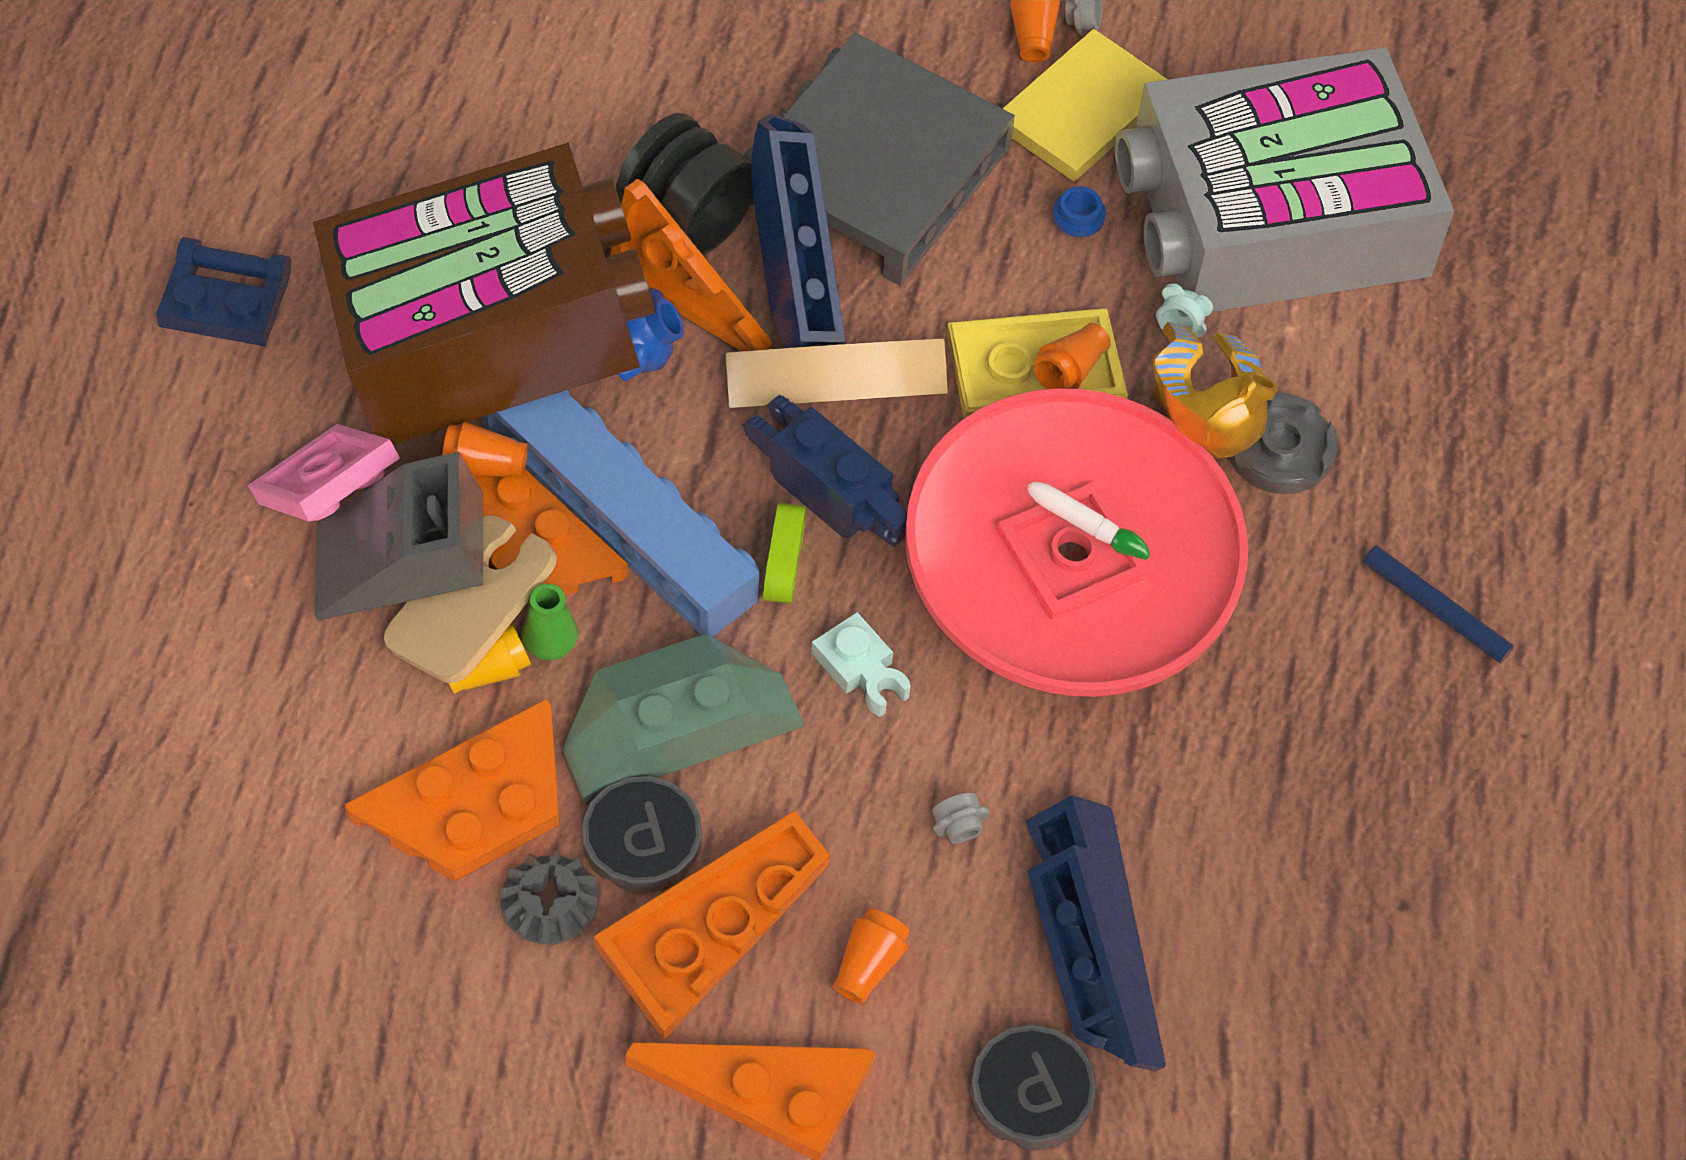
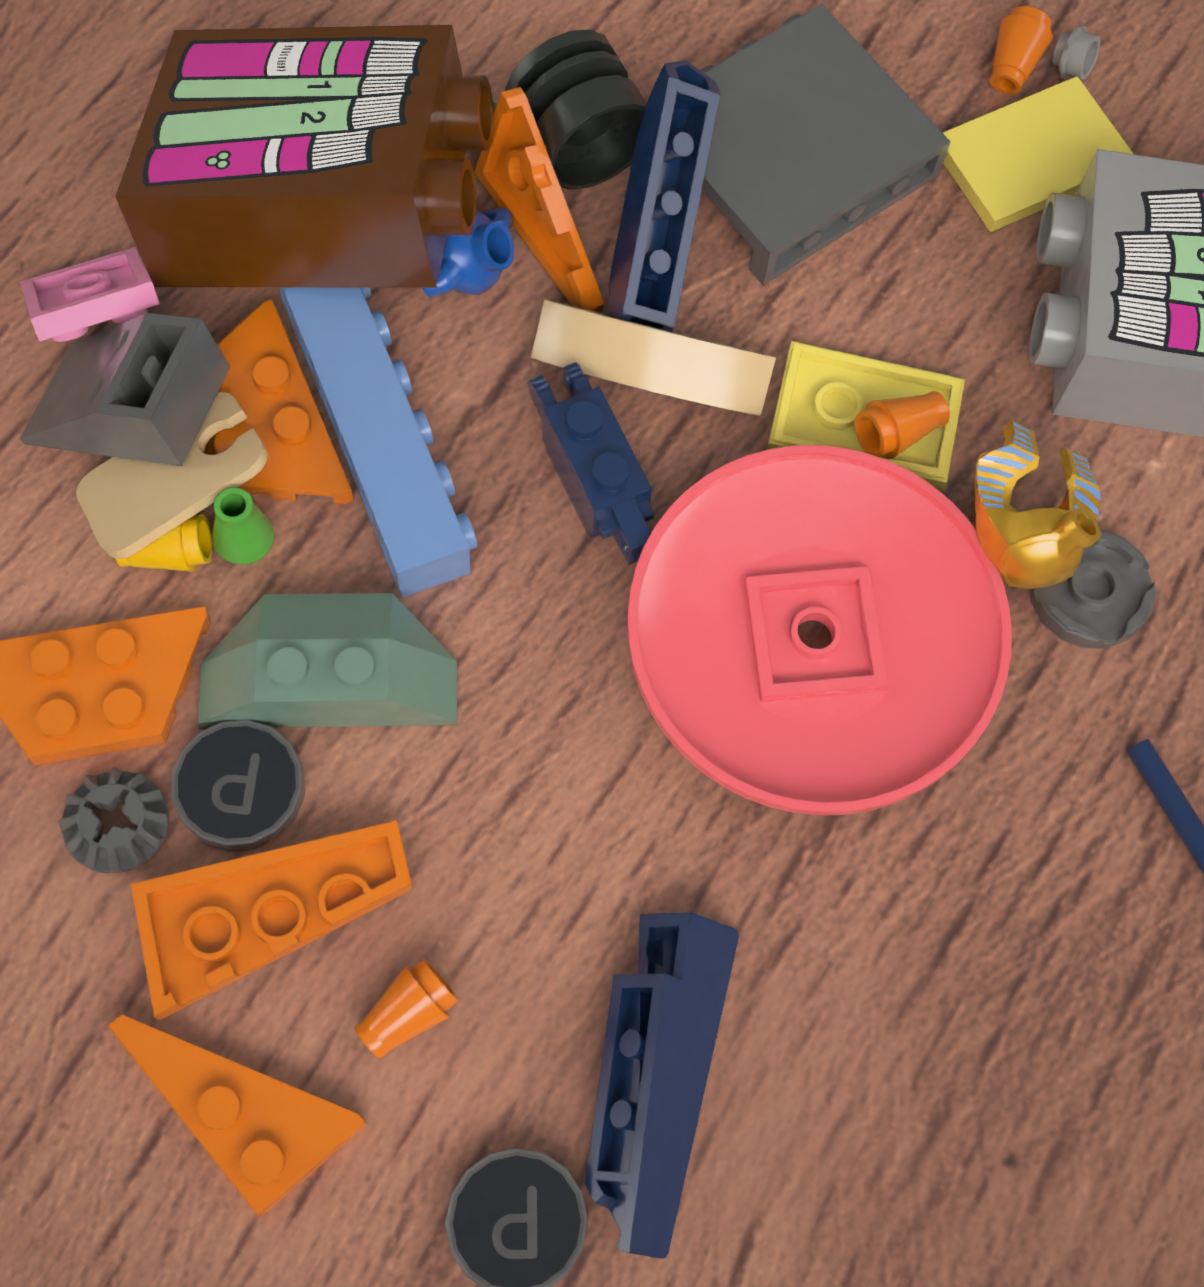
camera: 20 degrees right, 10 degrees up
(222, 306) = (83, 91): dark blue plate -> none
(486, 451) = (249, 324): orange cone -> none
(784, 553) = (513, 533): lime beam -> none
(858, 657) = (542, 671): light aqua plate -> none
(960, 818) = (569, 889): light grey plate -> none
(1079, 212) = (980, 266): blue plate -> none
(1120, 539) = (863, 645): white piece -> none
(1184, 308) = (1044, 410): light aqua plate -> none

